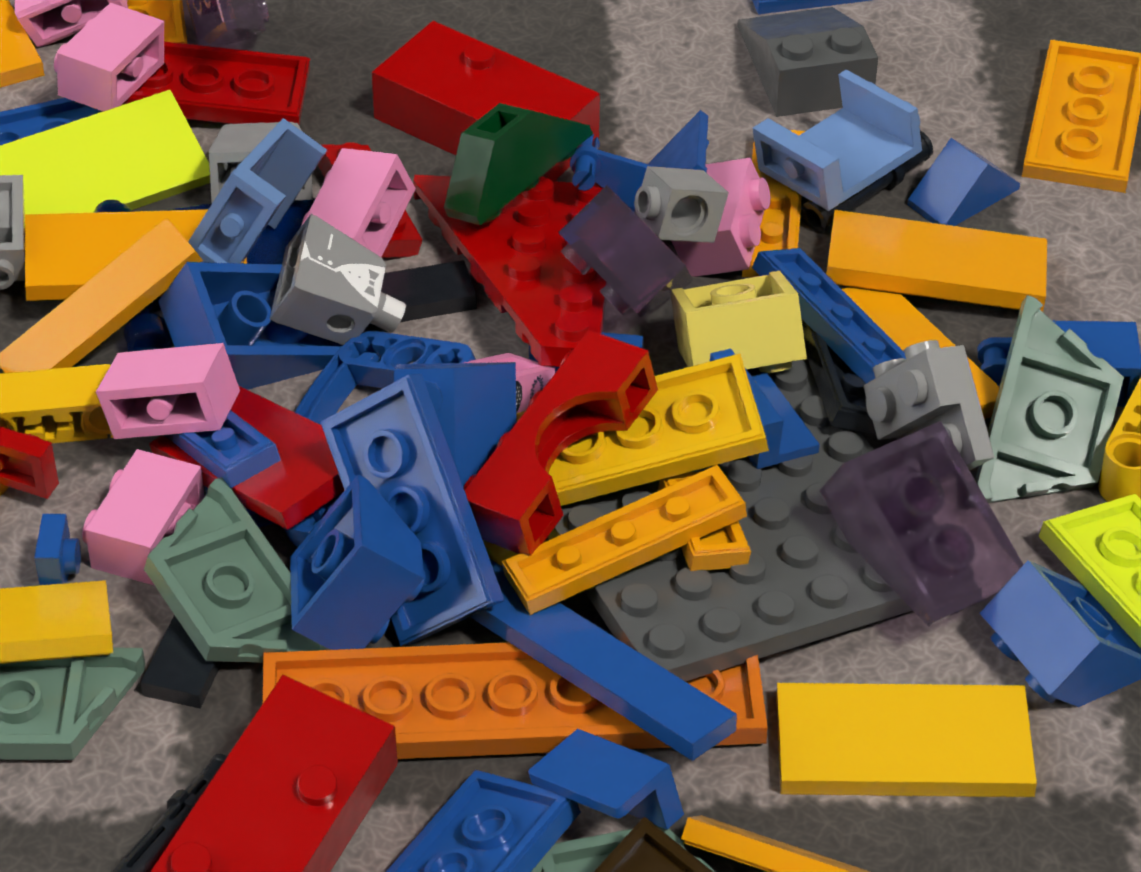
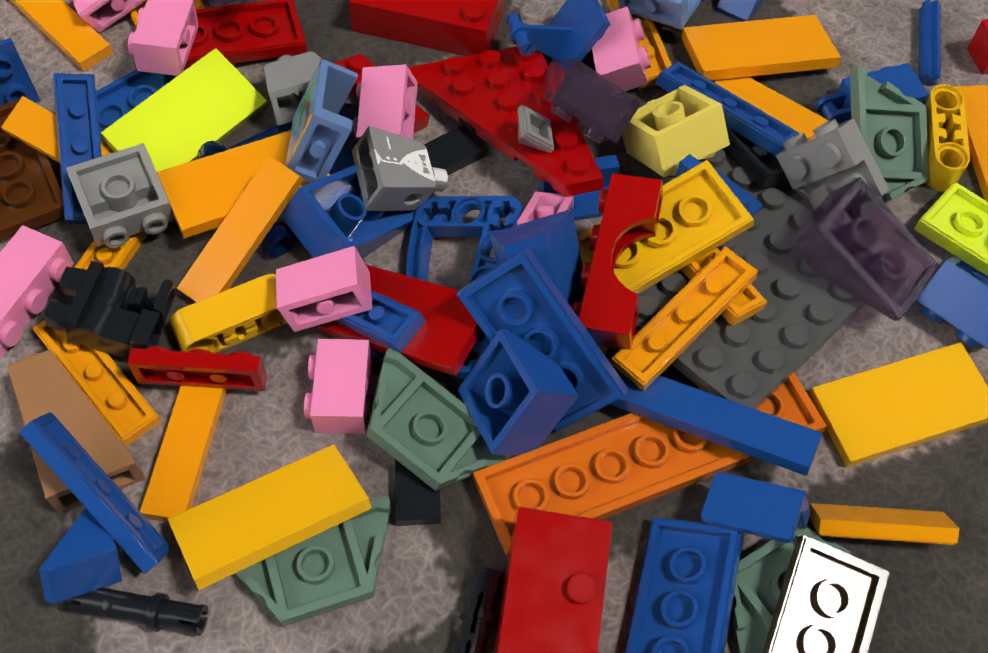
camera: 20 degrees left, 15 degrees up
(55, 551) = (293, 434): blue plate -> none
(505, 157) = (474, 48): dark green slope -> none
(533, 272) = (534, 130): none -> light grey slope
(680, 204) = (608, 52): light grey brick -> none

